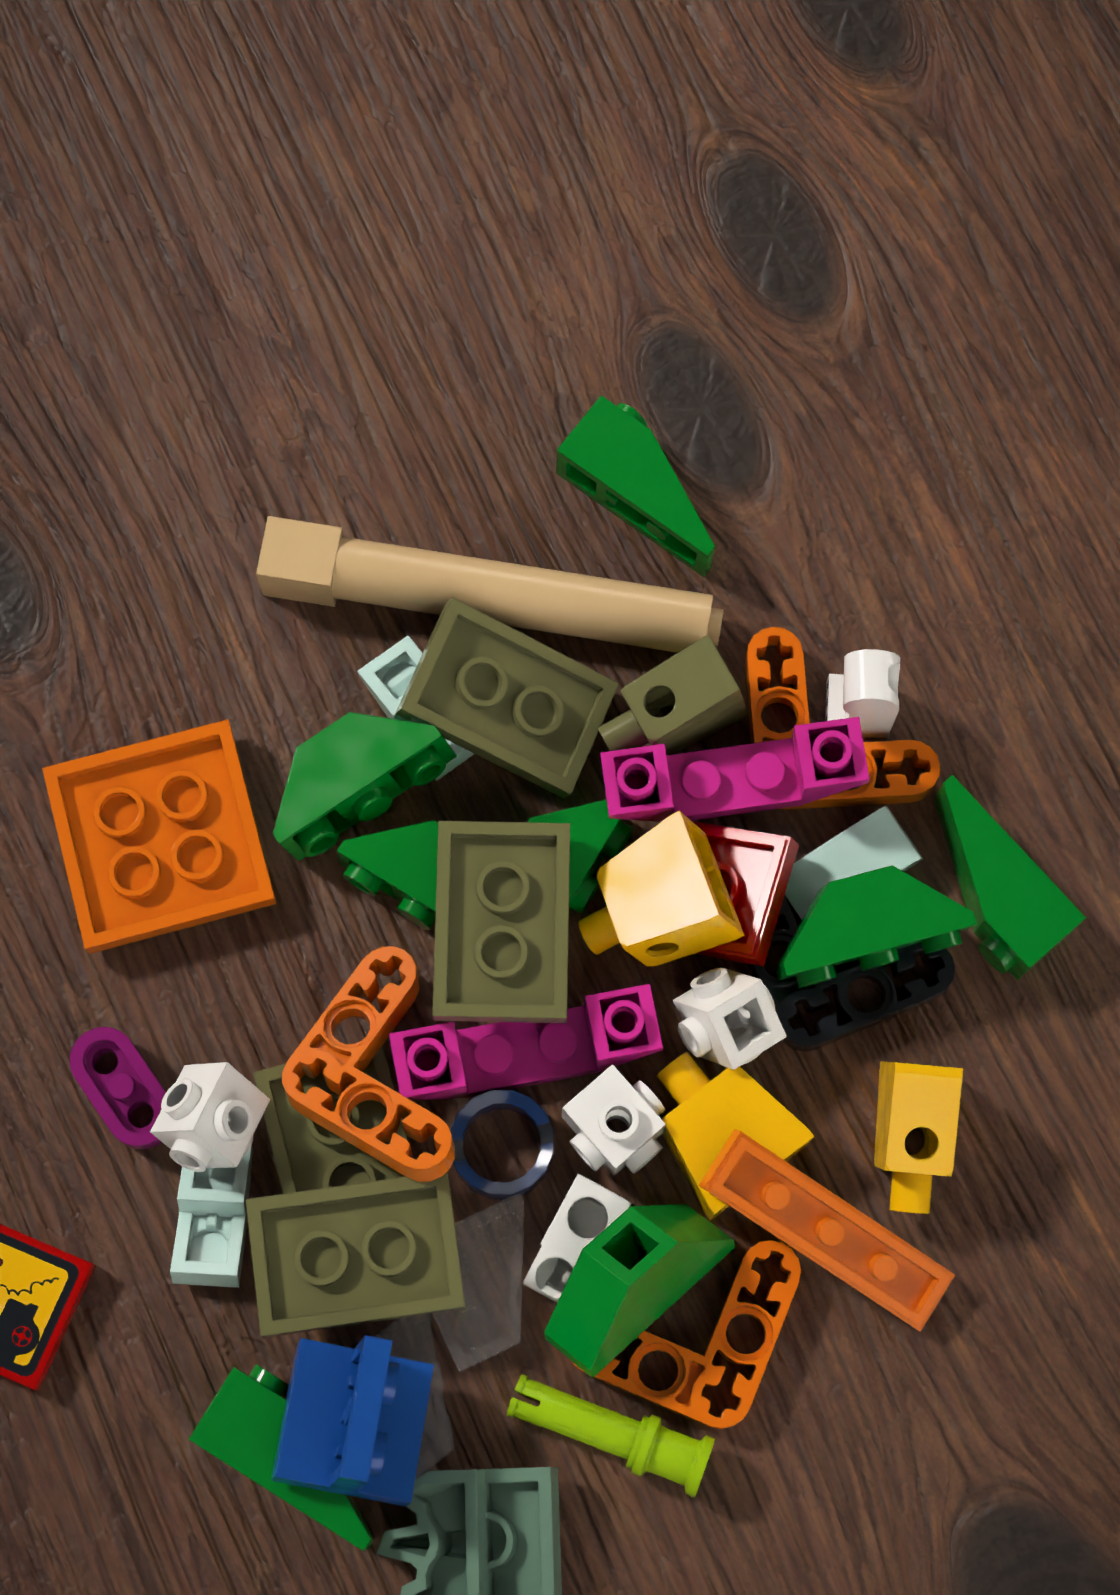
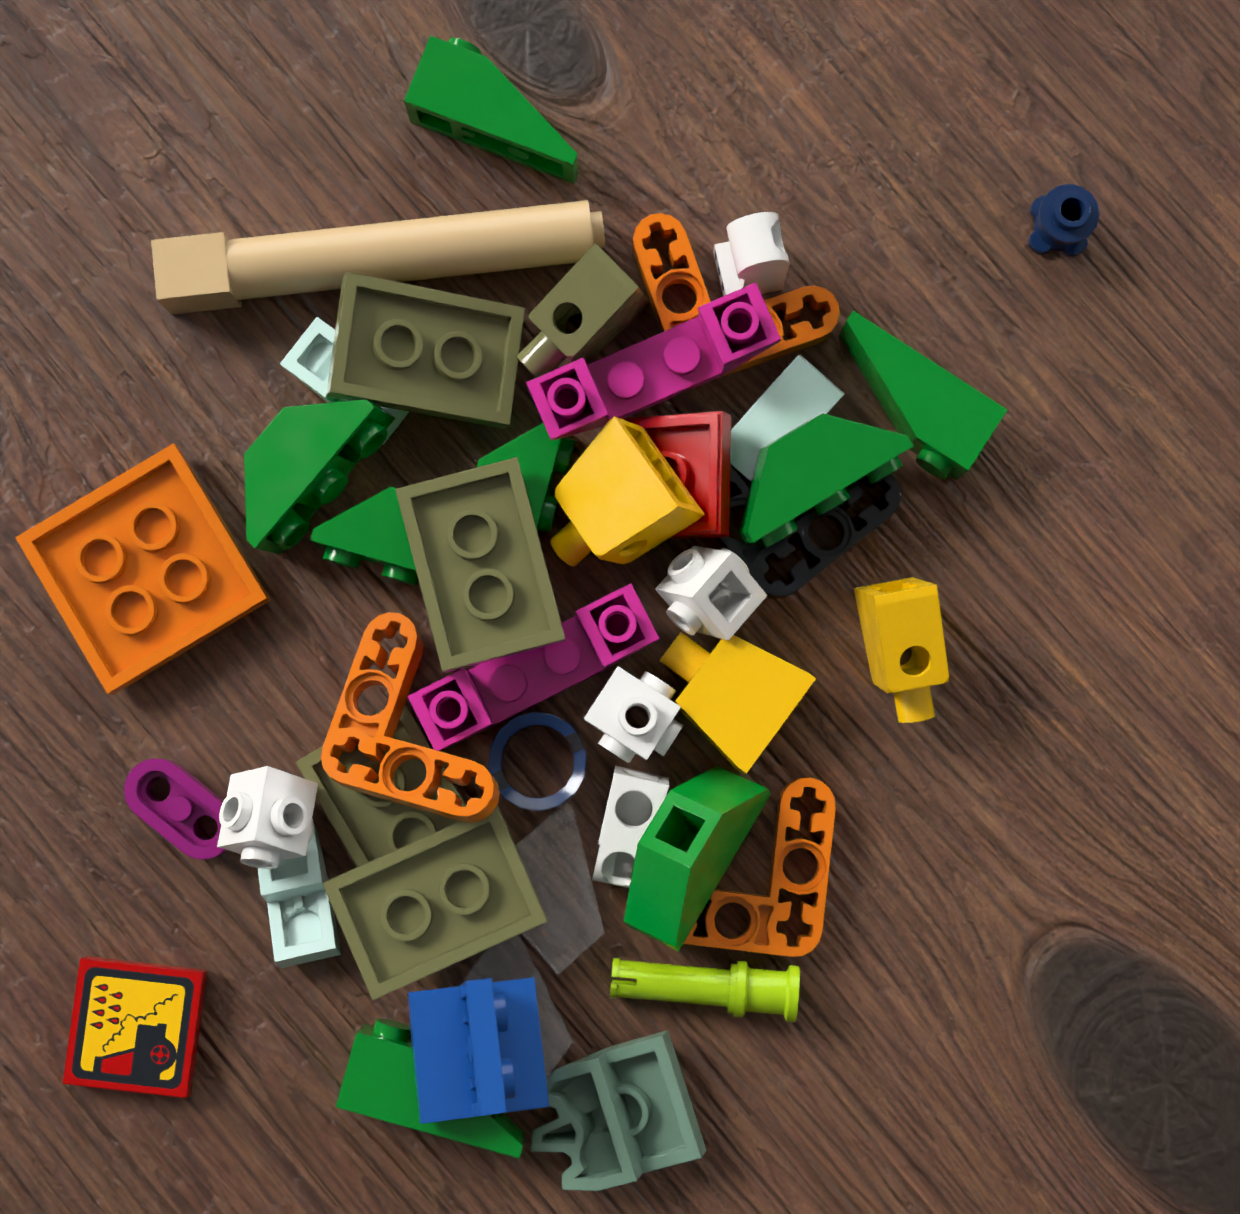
camera: 20 degrees left, 10 degrees up
(827, 1230) = (847, 757): orange tile -> none

